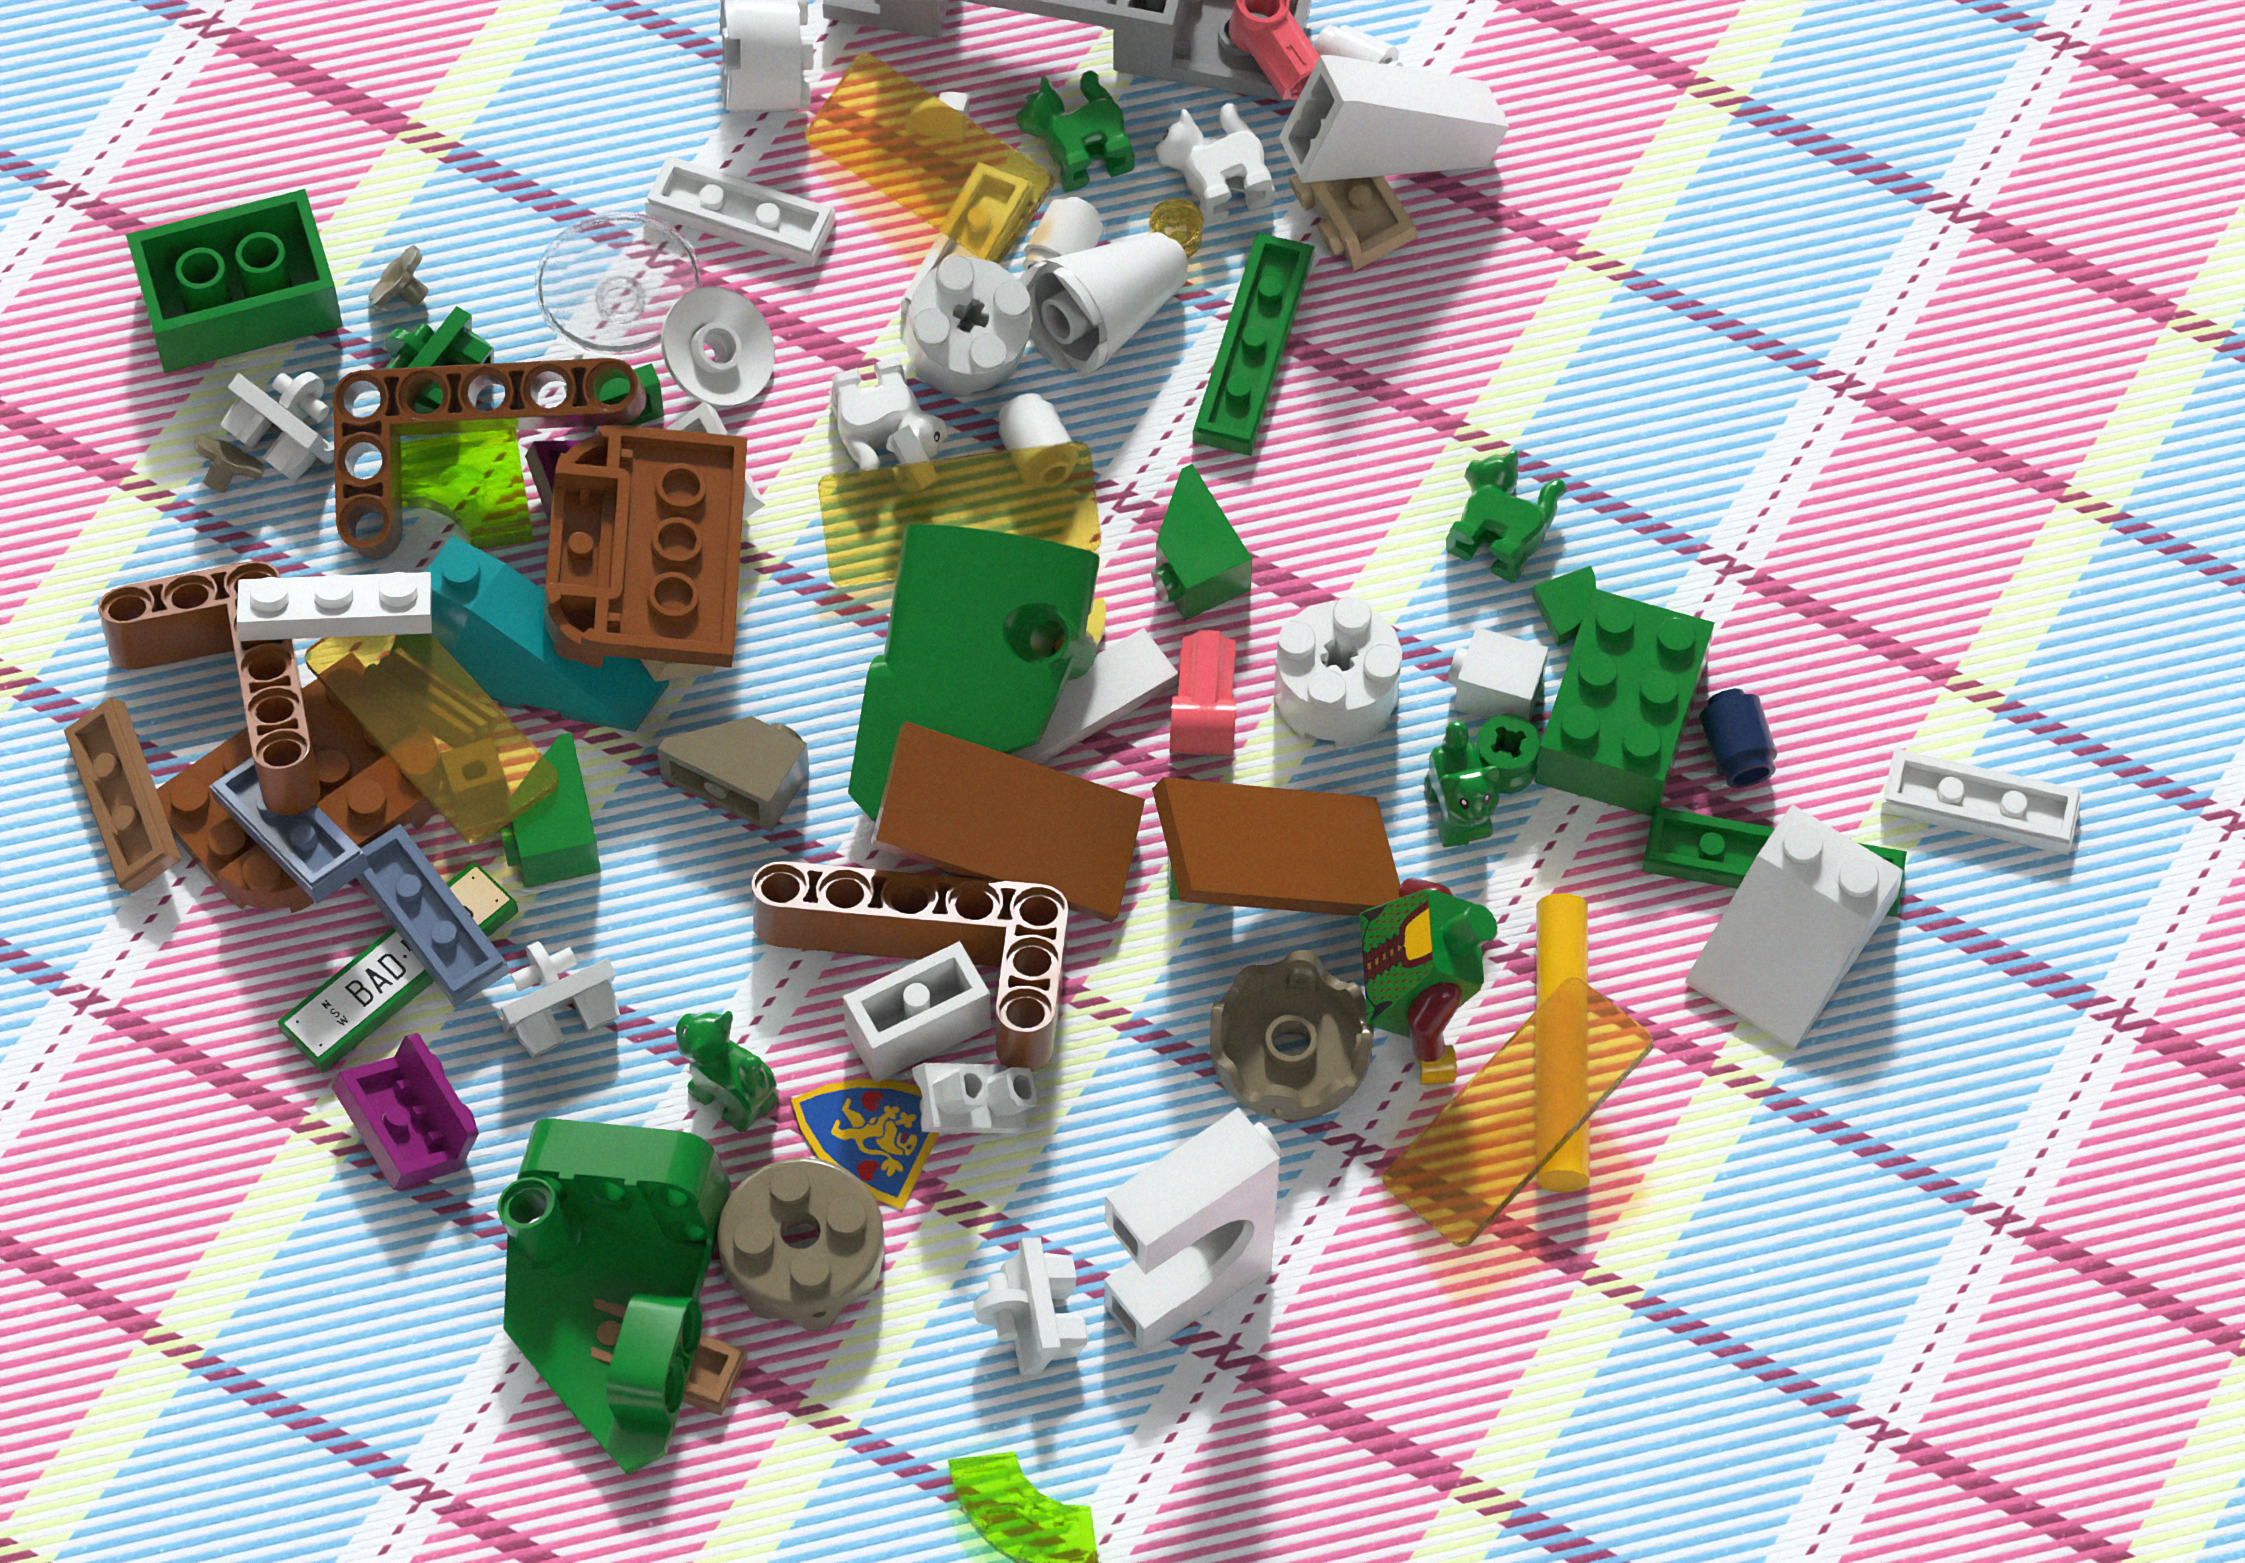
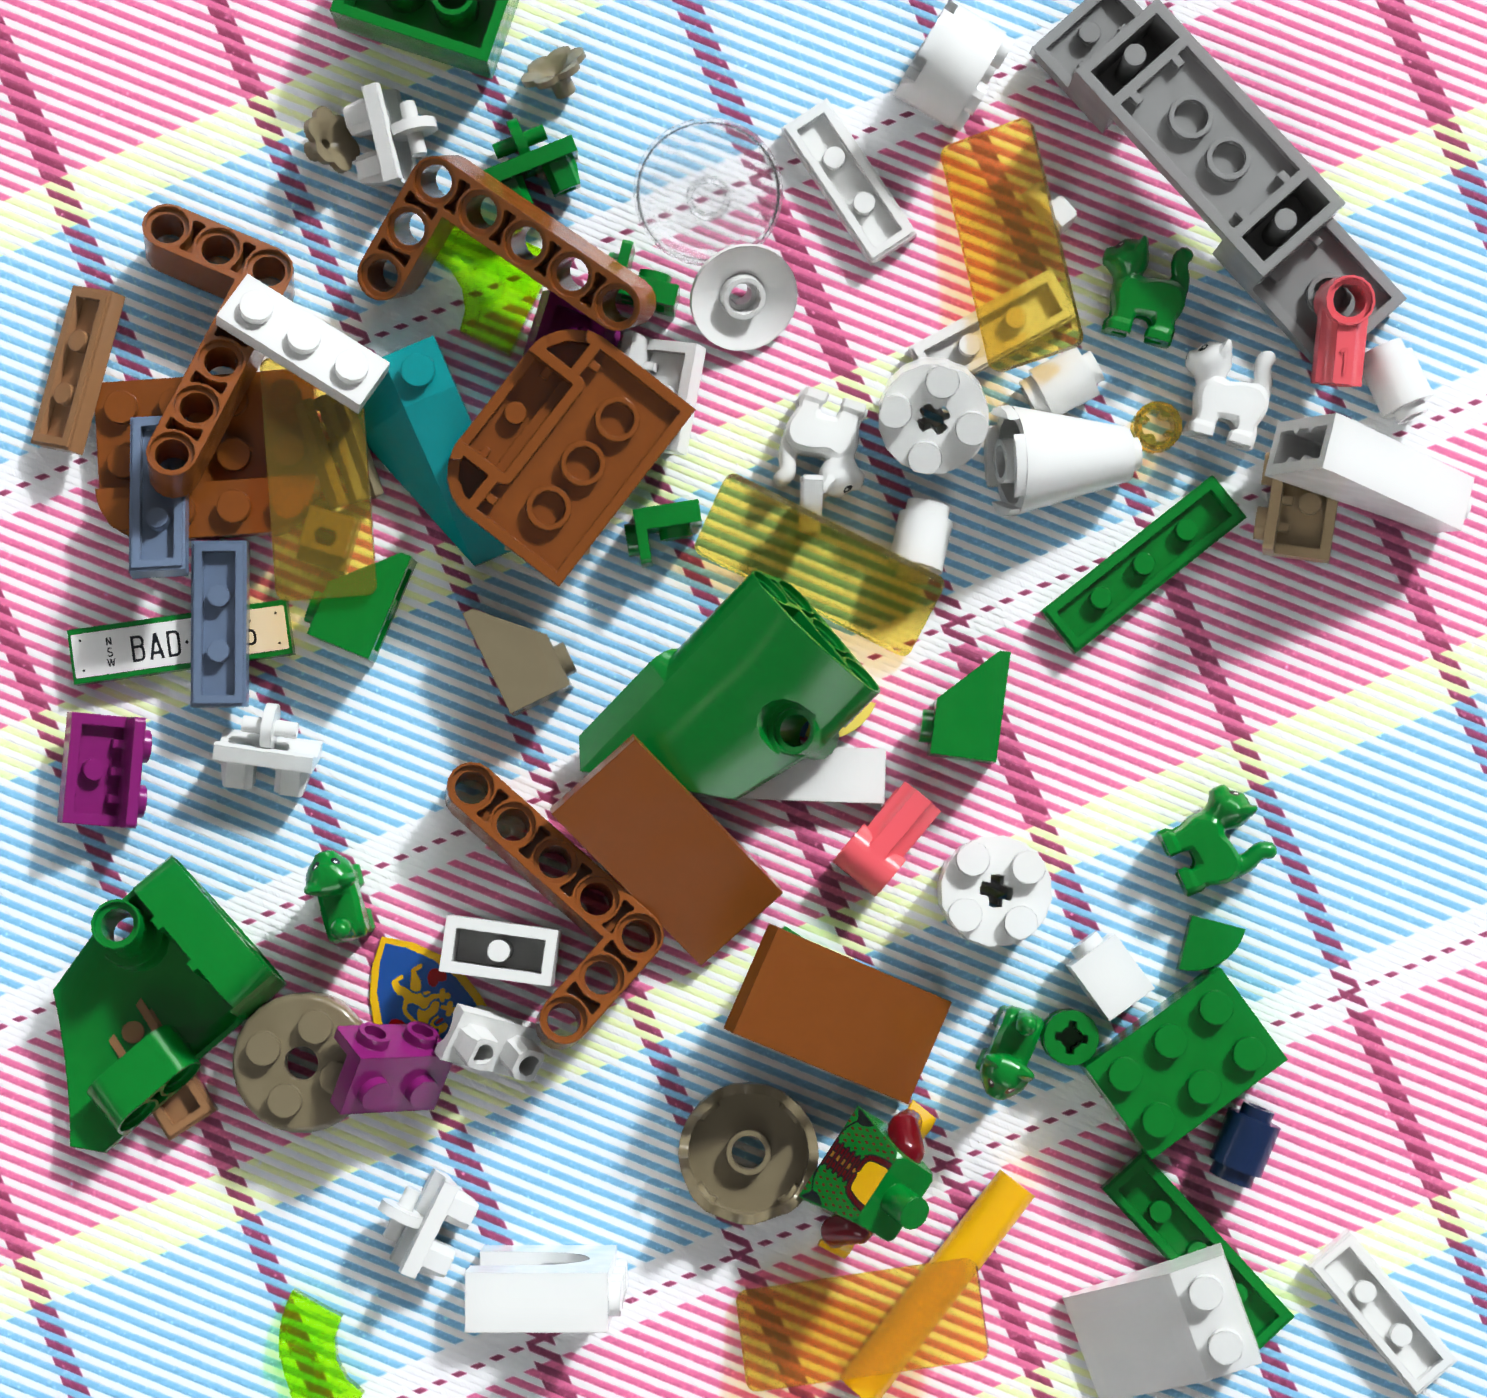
camera: 35 degrees right, 25 degrees up
(785, 572) = (670, 520): none -> green bracket
(894, 1181) = (389, 1068): none -> magenta bracket

